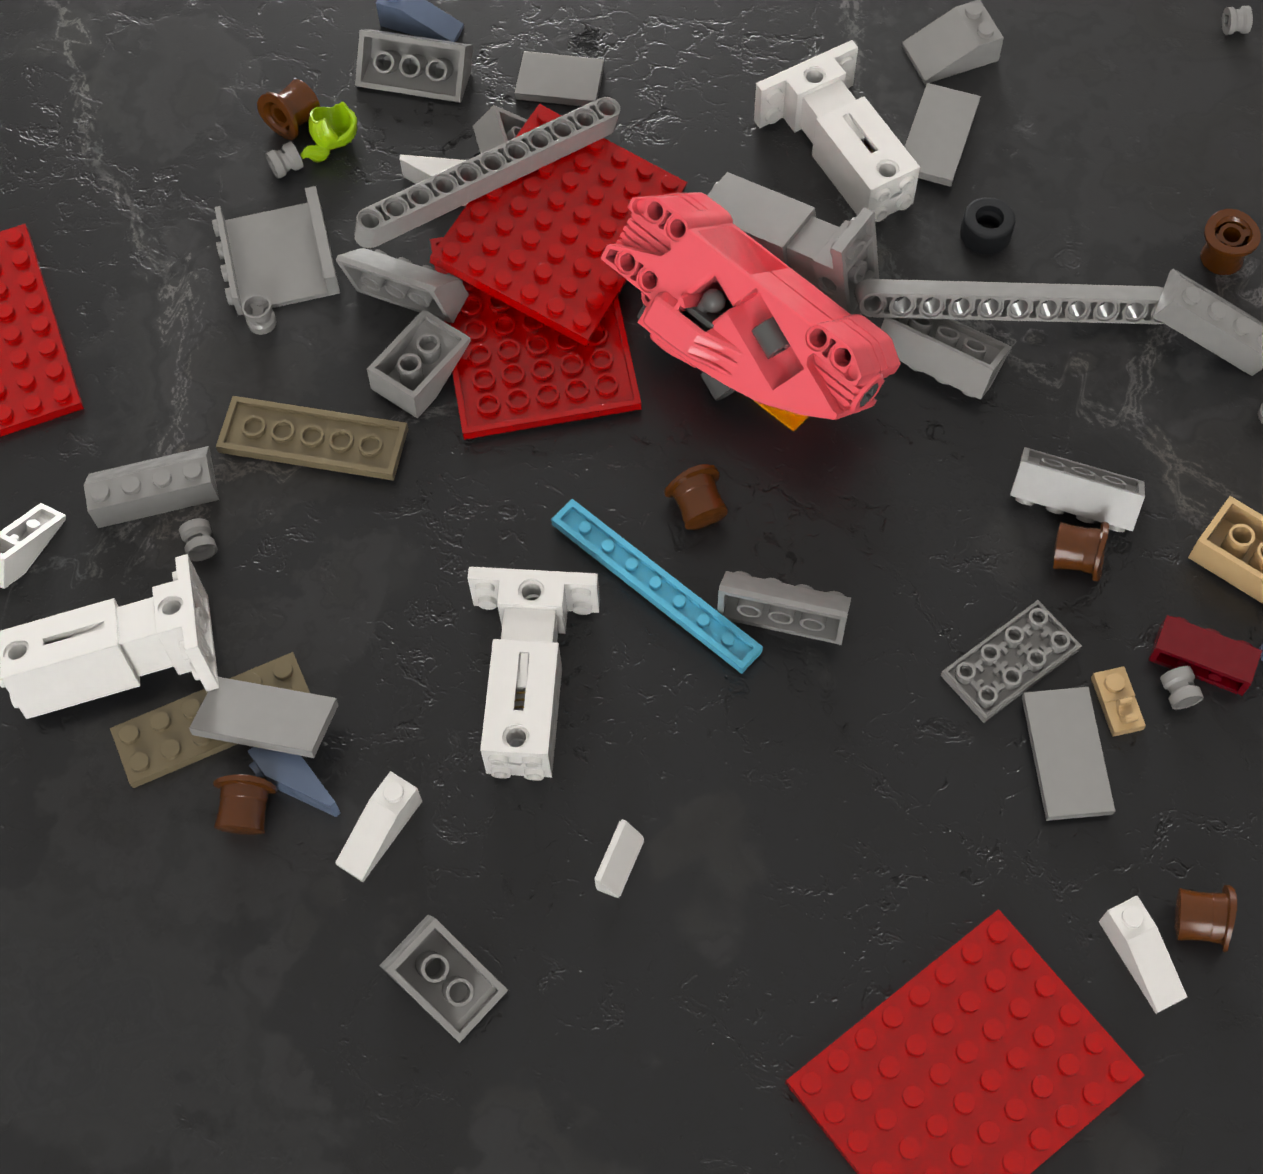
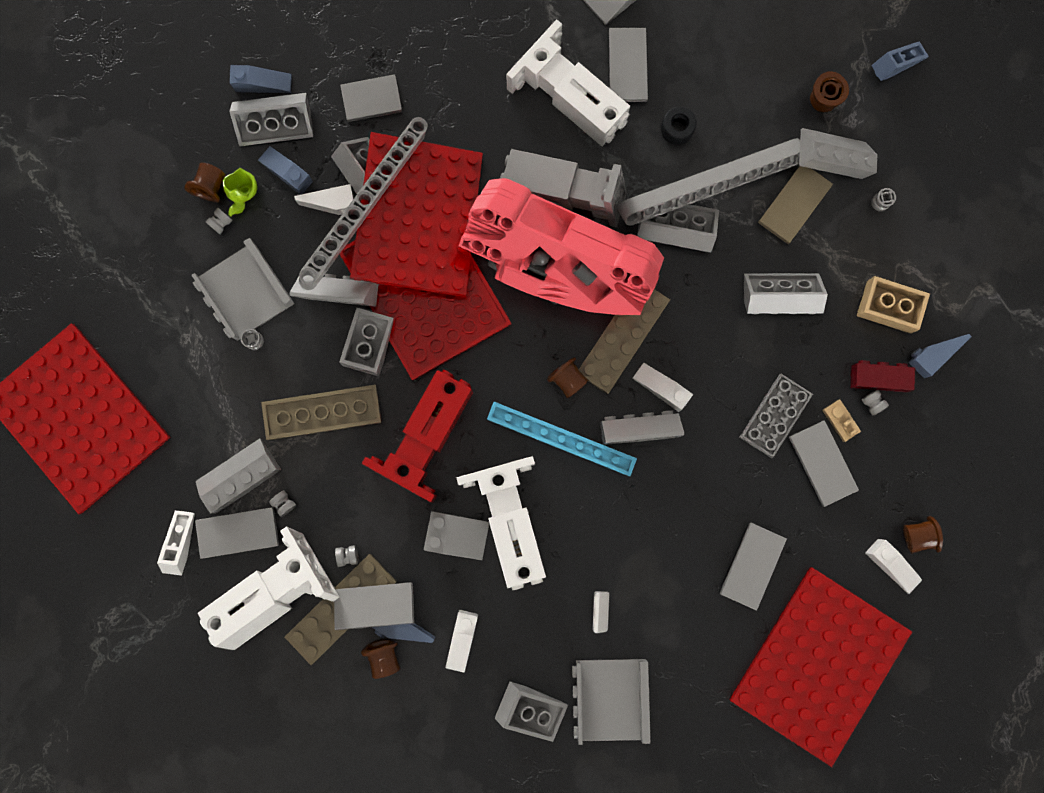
camera: 25 degrees left, 20 degrees up
(111, 558) = (237, 532): none -> light grey tile
(258, 642) = (346, 556): none -> light grey wheel
(405, 128) = (286, 170): none -> sand blue slope
(434, 668) = (456, 536): none -> light grey slope
(450, 507) = (425, 434): none -> red brick
(581, 1009) = (611, 700): none -> light grey panel
(805, 476) = (620, 343): none -> dark tan plate
(843, 563) = (663, 387): none -> white slope
(897, 873) = (753, 566): none -> light grey tile
(1081, 548) = (798, 335): reddish brown piece -> none
(1134, 374) = (795, 203): none -> dark tan tile

